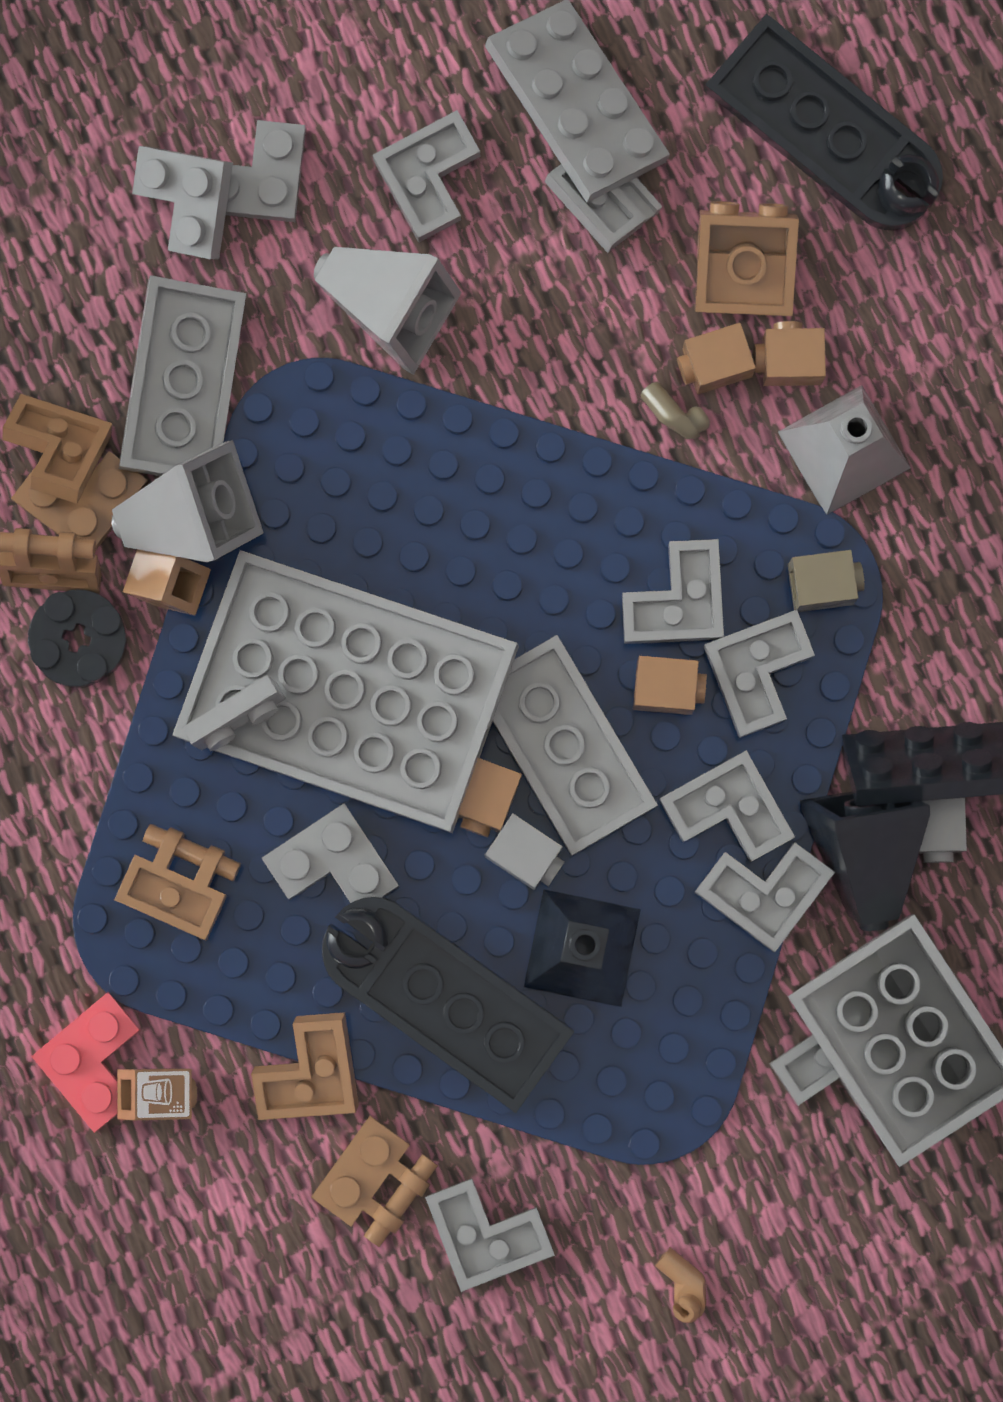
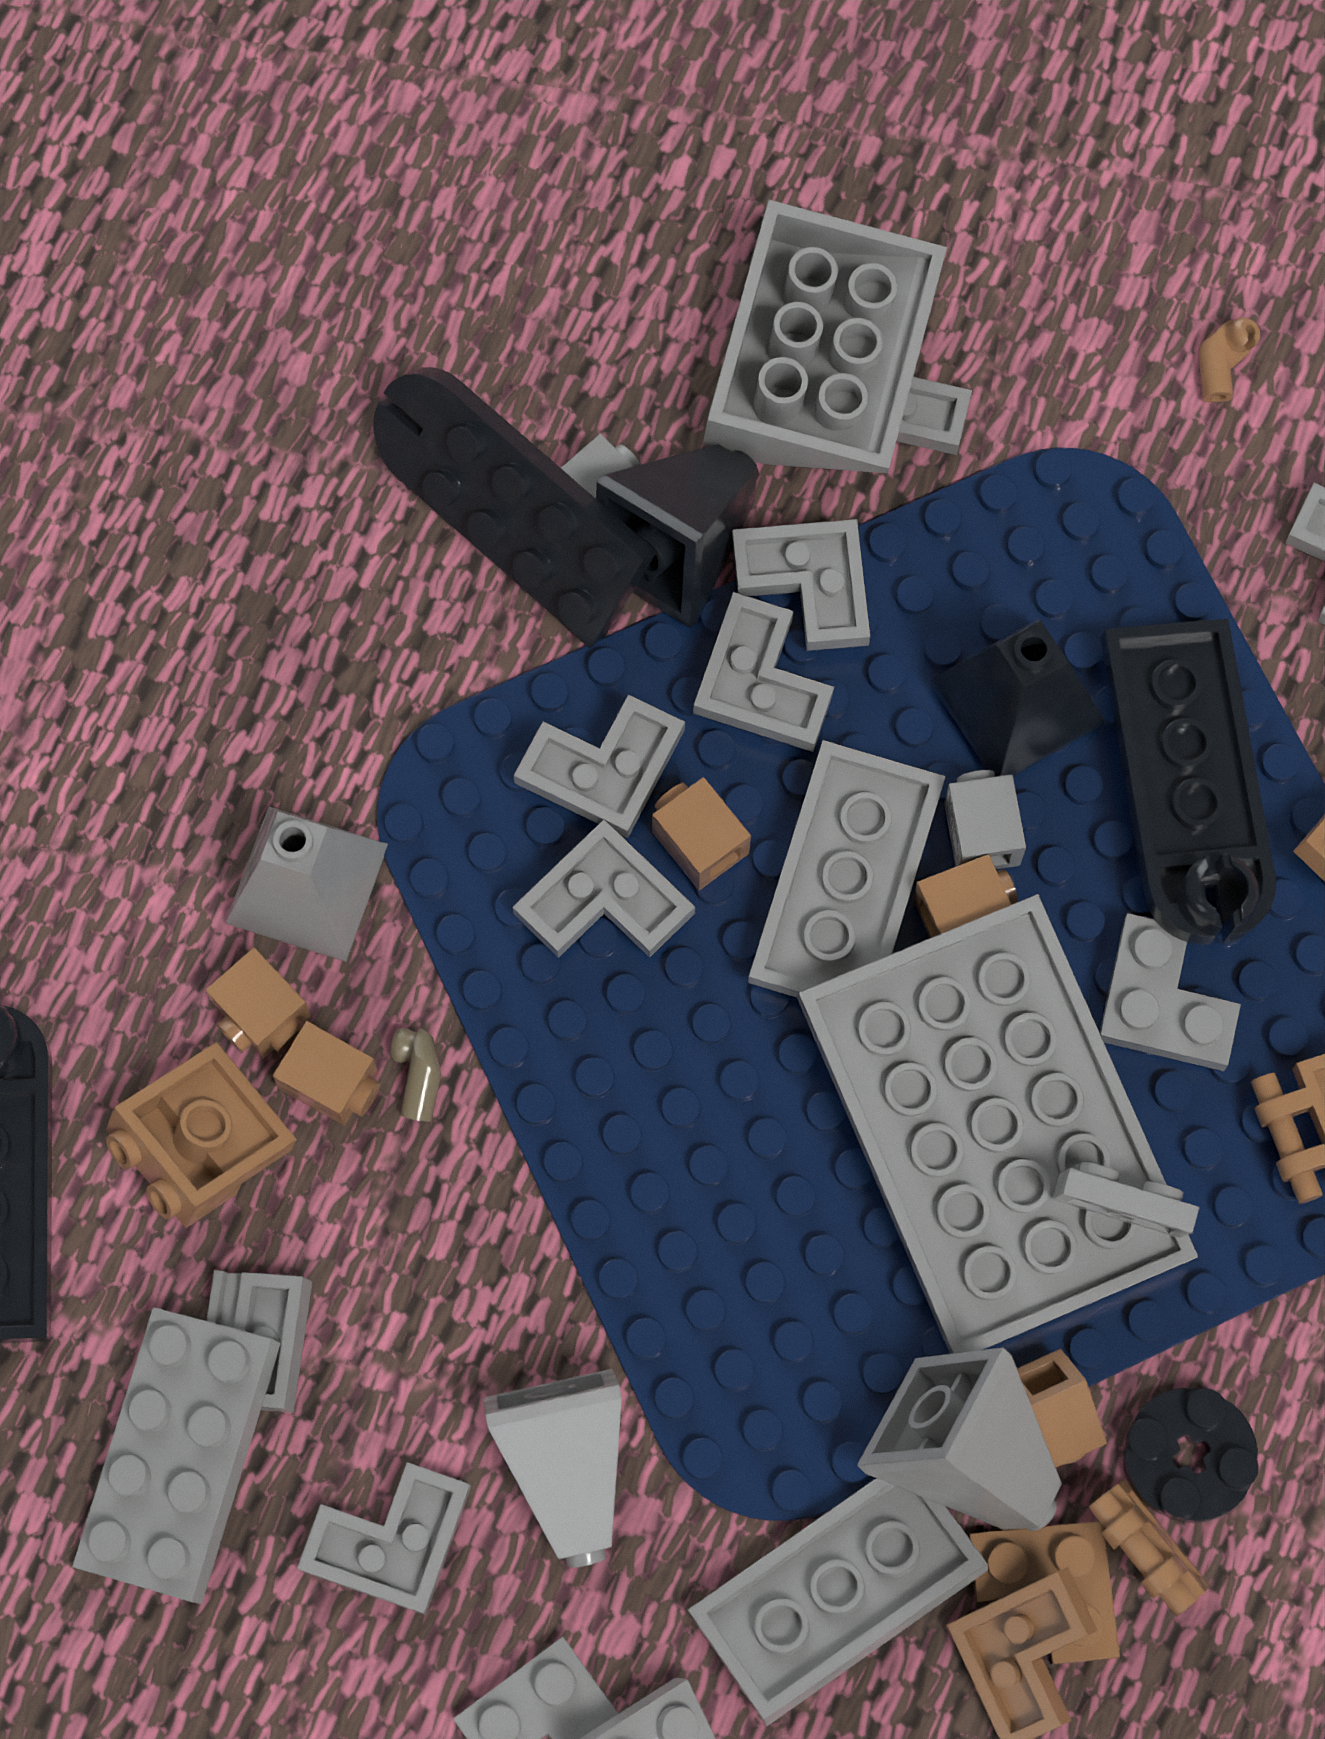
camera: 135 degrees left, 10 degrees down
(825, 580) = (461, 775): dark tan brick -> none

